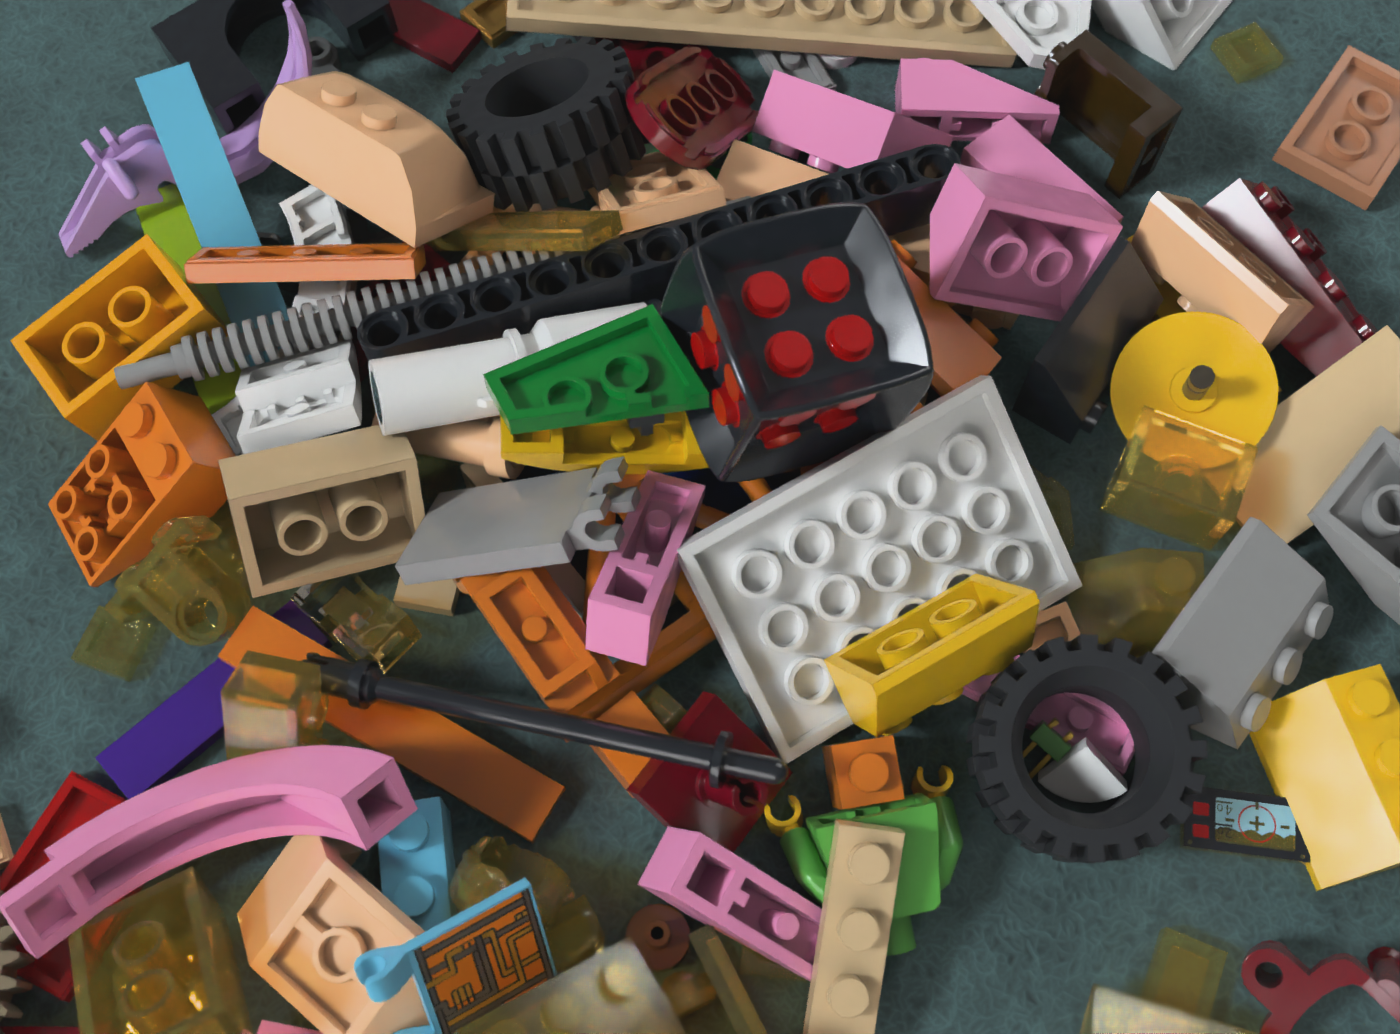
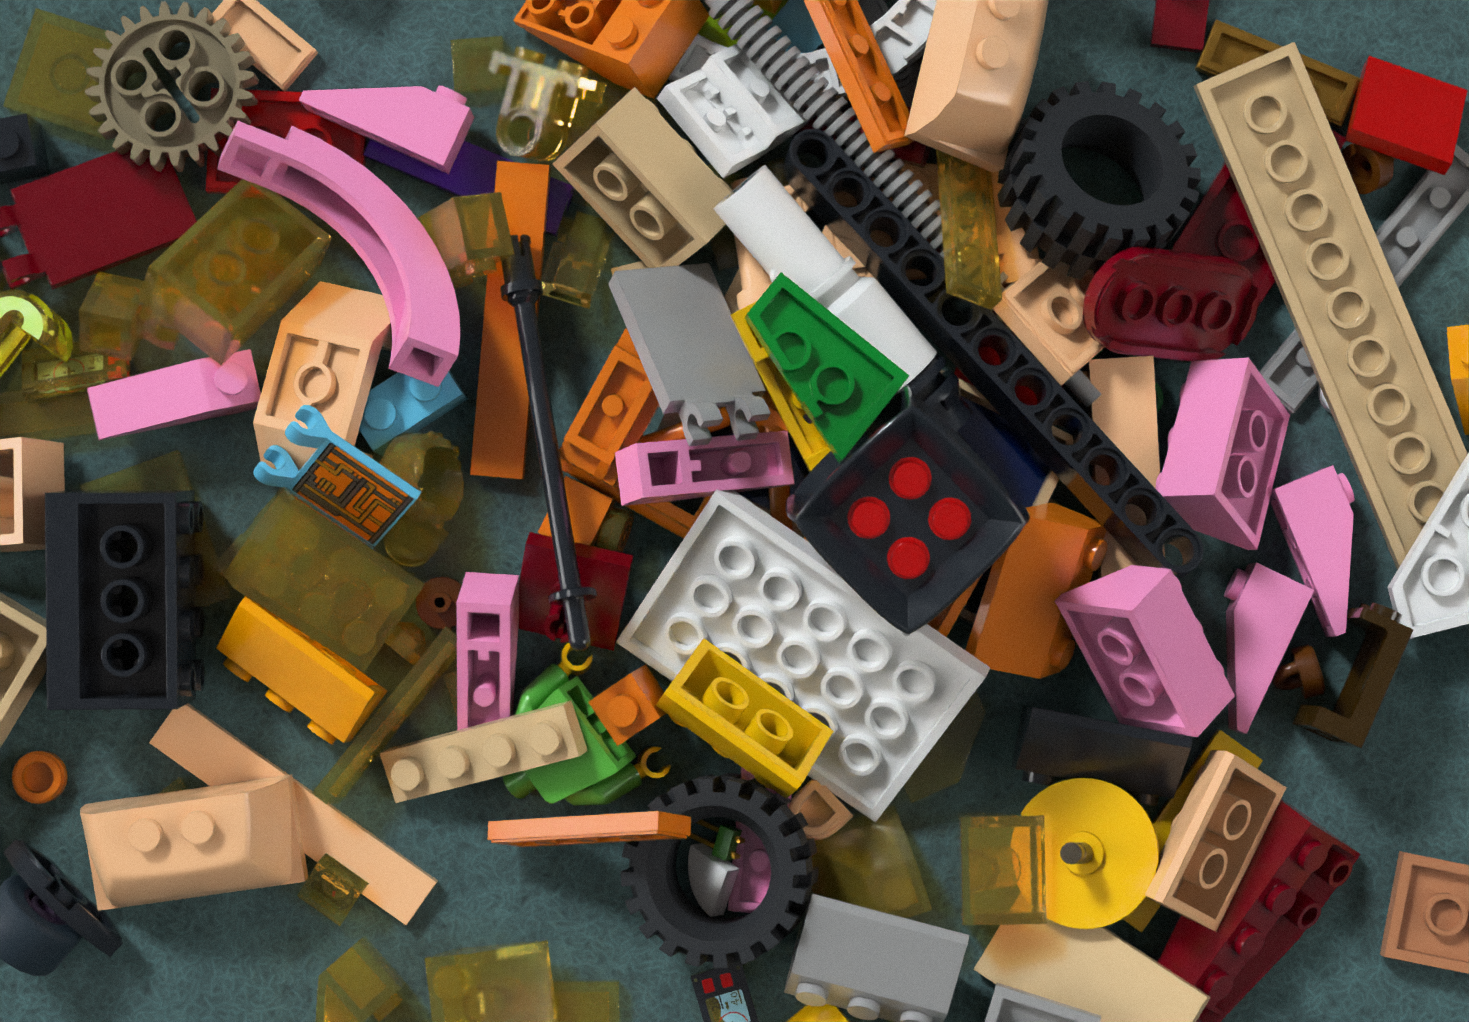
camera: 70 degrees right, 20 degrees up
(112, 737) = (405, 119): none -> bright pink slope
(990, 865) = (590, 829): none -> orange tile
(1083, 157) = (1301, 672): none -> reddish brown tile

